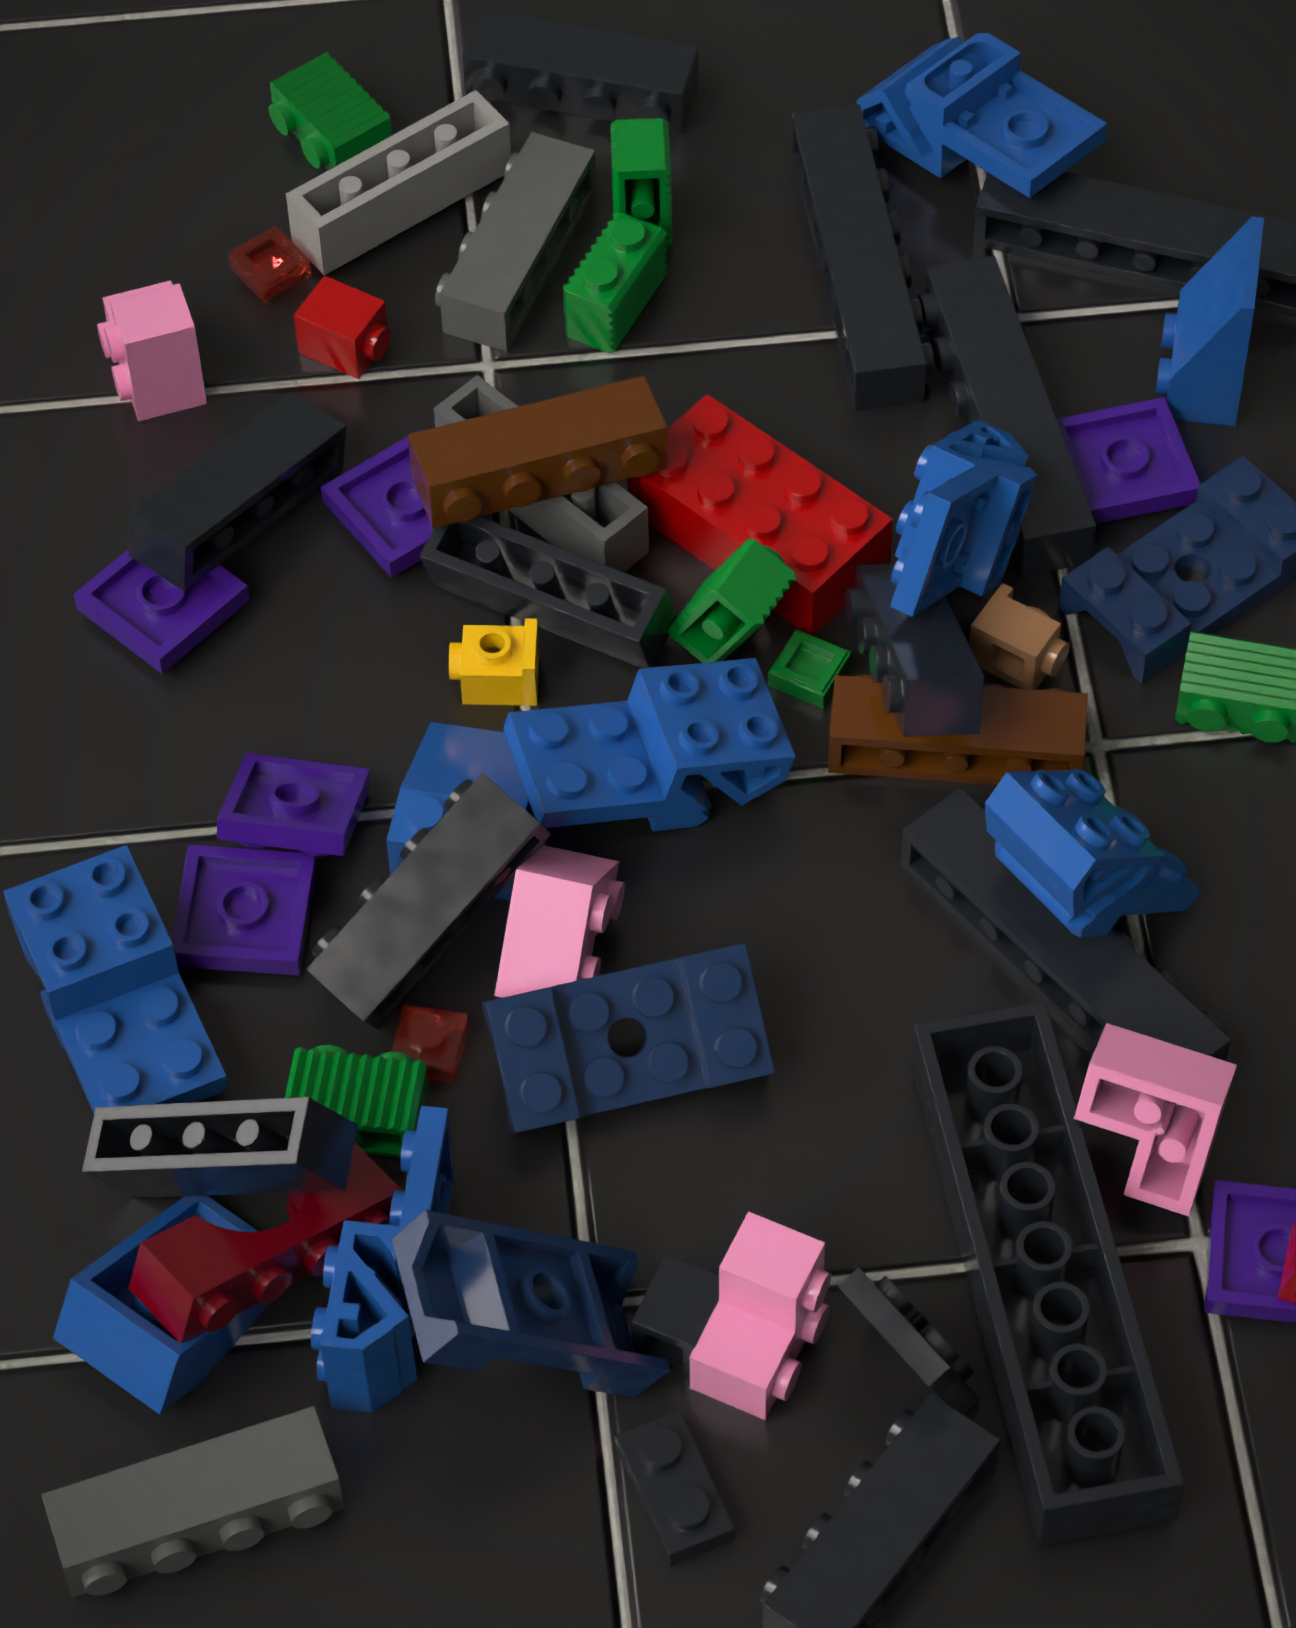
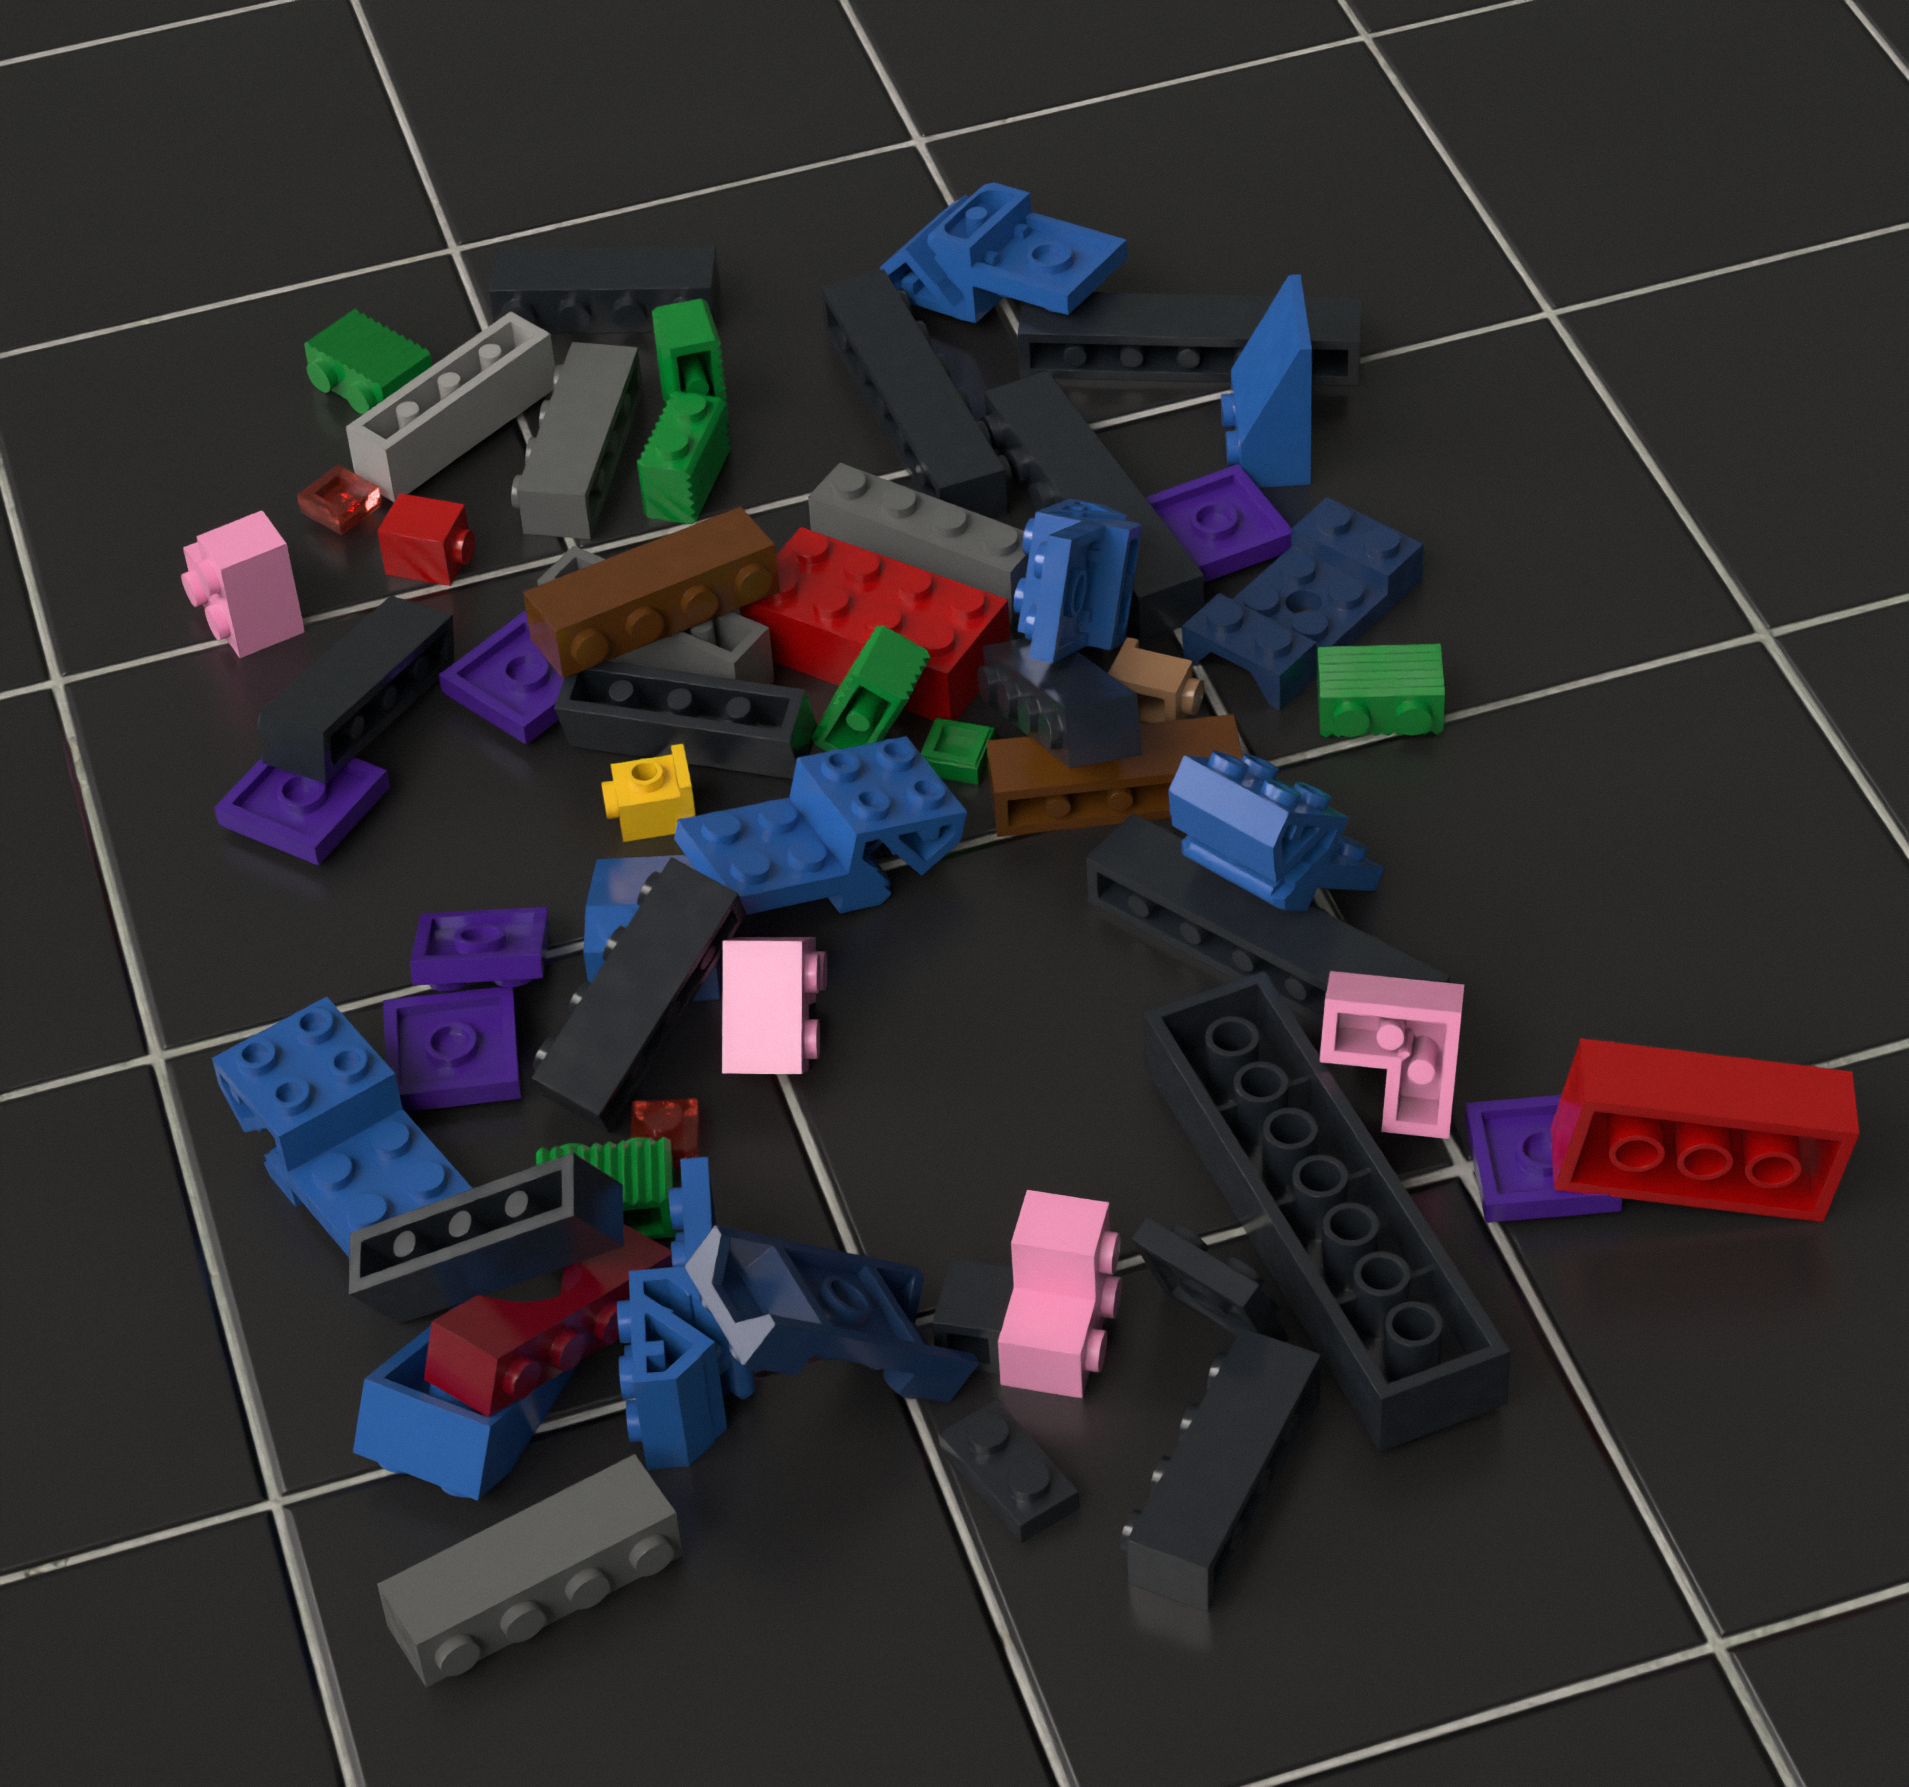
camera: 10 degrees left, 10 degrees down
(696, 1024) = (930, 1067): dark blue piece -> none
(822, 421) = (919, 531): none -> dark grey brick

